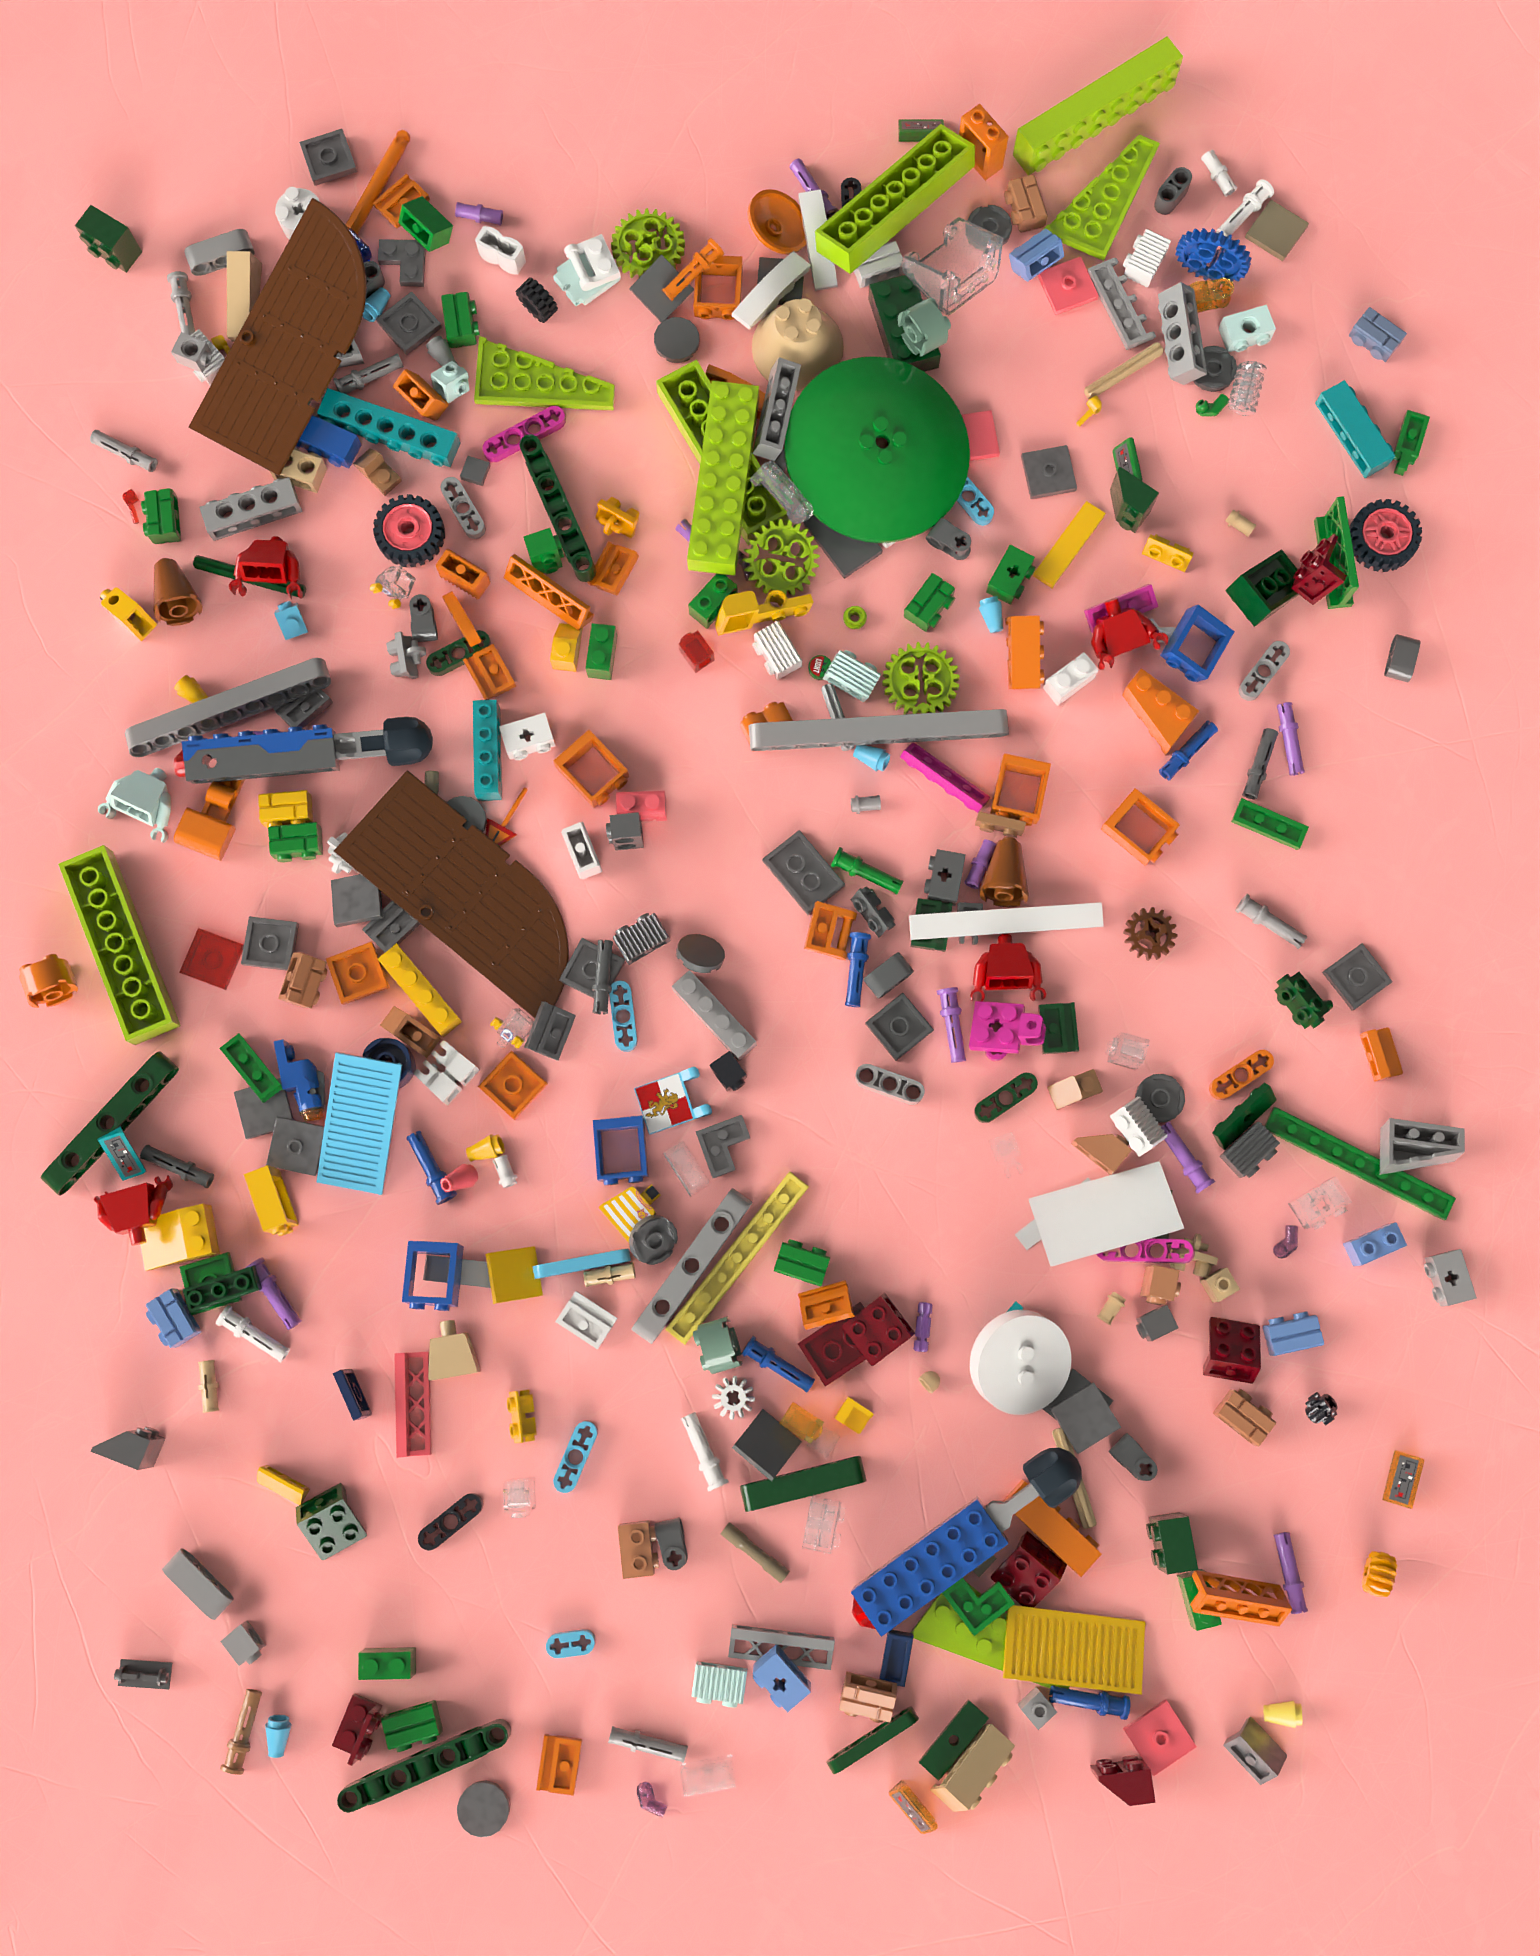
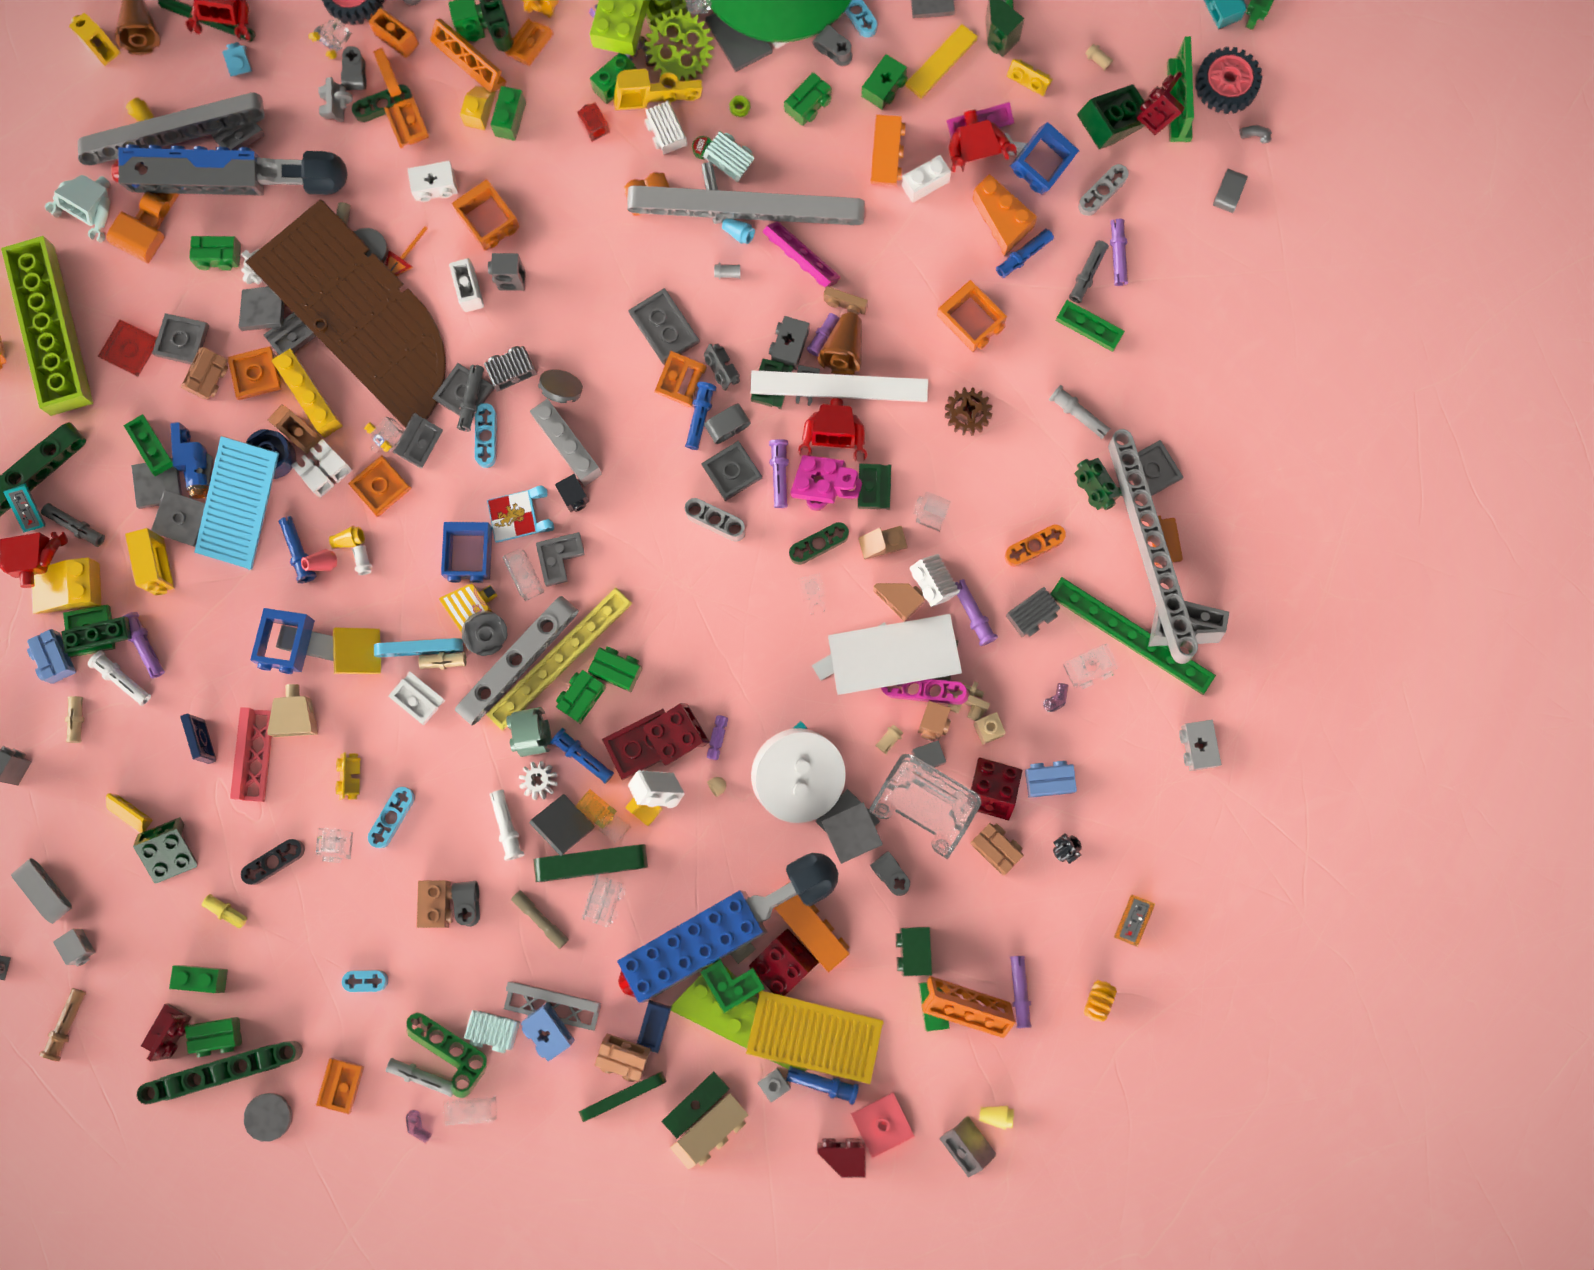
camera: 10 degrees right, 0 degrees up
(277, 1734) = (93, 1030): medium azure cone -> none
(285, 808) = (210, 221): yellow brick -> none
(405, 1583) = (224, 911): none -> light yellow axle
(487, 750) = (394, 189): teal brick -> none
(649, 804) = (532, 251): coral brick -> none
(669, 1712) = (442, 1050): none -> green beam
(767, 1298) = (580, 696): none -> green brick
(825, 1305) = (631, 707): orange plate -> none
(856, 867) = (711, 325): green pin -> none
(867, 1394) = (656, 789): none -> white brick
(899, 681) = (811, 167): lime gear -> none
(913, 1808) = (651, 1161): clear yellow slope -> none
(992, 613) = (862, 112): medium azure cone -> none
(1026, 767) = (874, 252): orange window -> none
(1080, 1496) = (837, 896): tan axle -> none
(1162, 1096) = (960, 557): dark grey tile -> none
(1166, 1374) = (927, 800): none -> clear windscreen
(1244, 1115) = (1032, 581): dark green tile -> none
(1370, 1075) = (1149, 554): none -> light grey beam
(1375, 1244) = (1135, 707): medium blue brick -> none
(1430, 590) = (1256, 130): none -> flat silver arm

